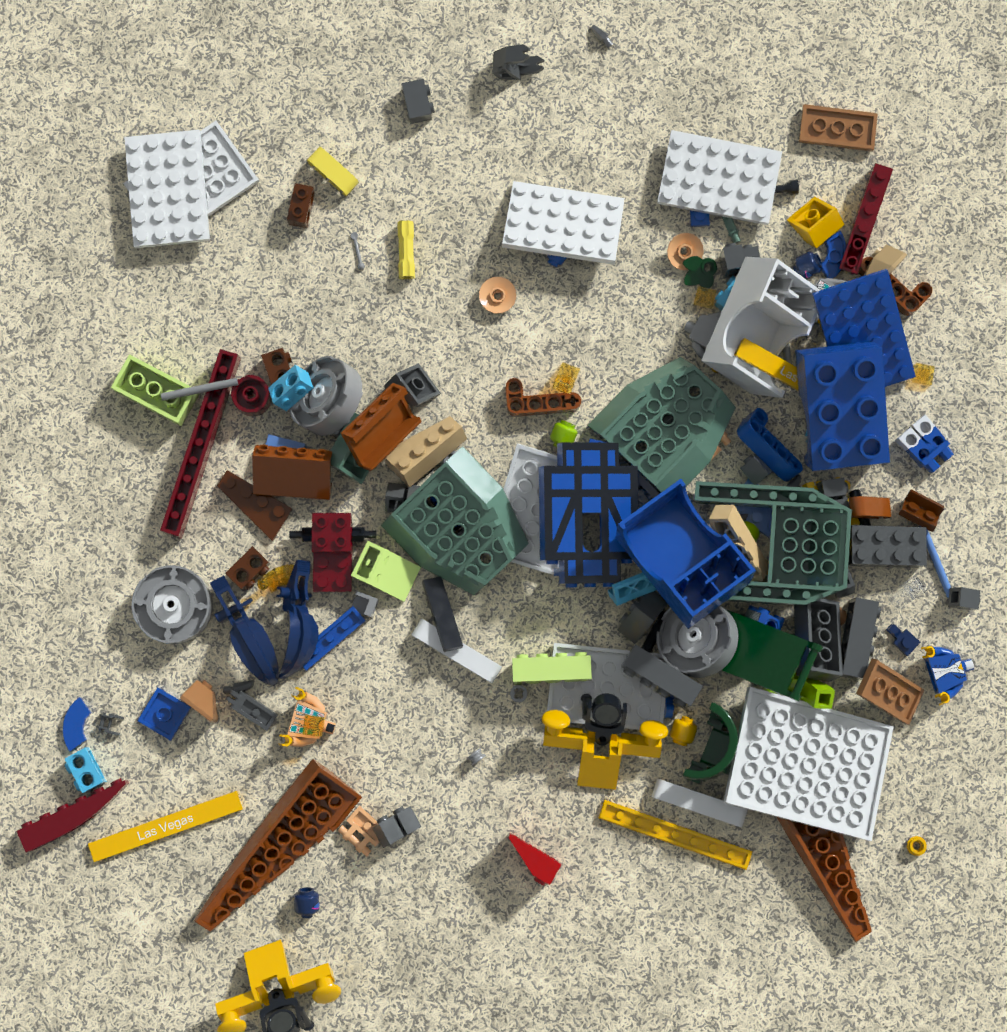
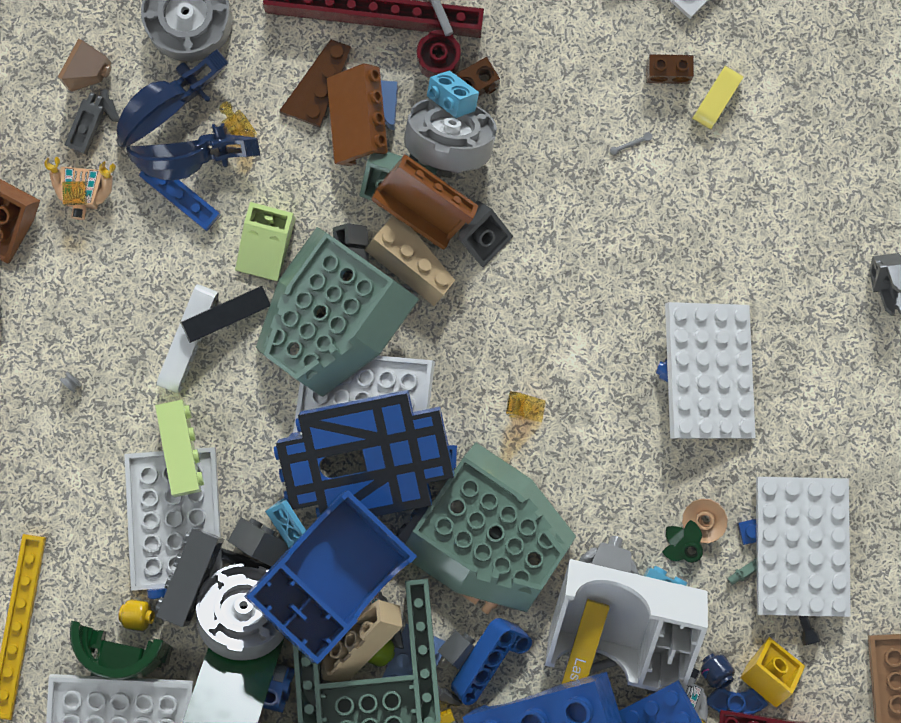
camera: 80 degrees right, 0 degrees up
(164, 714) = (65, 28): blue tile -> none
(244, 565) = (245, 86): reddish brown brick -> none
(332, 549) = (281, 178): dark red piece -> none
(365, 604) = (224, 227): light grey panel -> none
(406, 253) = (626, 200): light yellow axle -> none
(417, 101) = (821, 177): dark grey brick -> none
(500, 286) = (609, 299): light nougat dish -> none
(512, 693) = (143, 418): light grey bush -> none
(543, 400) = (494, 385): dark orange beam -> none
(563, 432) = (459, 415): lime head -> none
(606, 712) = (121, 521): yellow piece -> none
(699, 802) = (56, 641): white beam -> none
(704, 297) = (654, 553): clear yellow tile -> none
(733, 257) = (709, 578): dark grey brick -> none

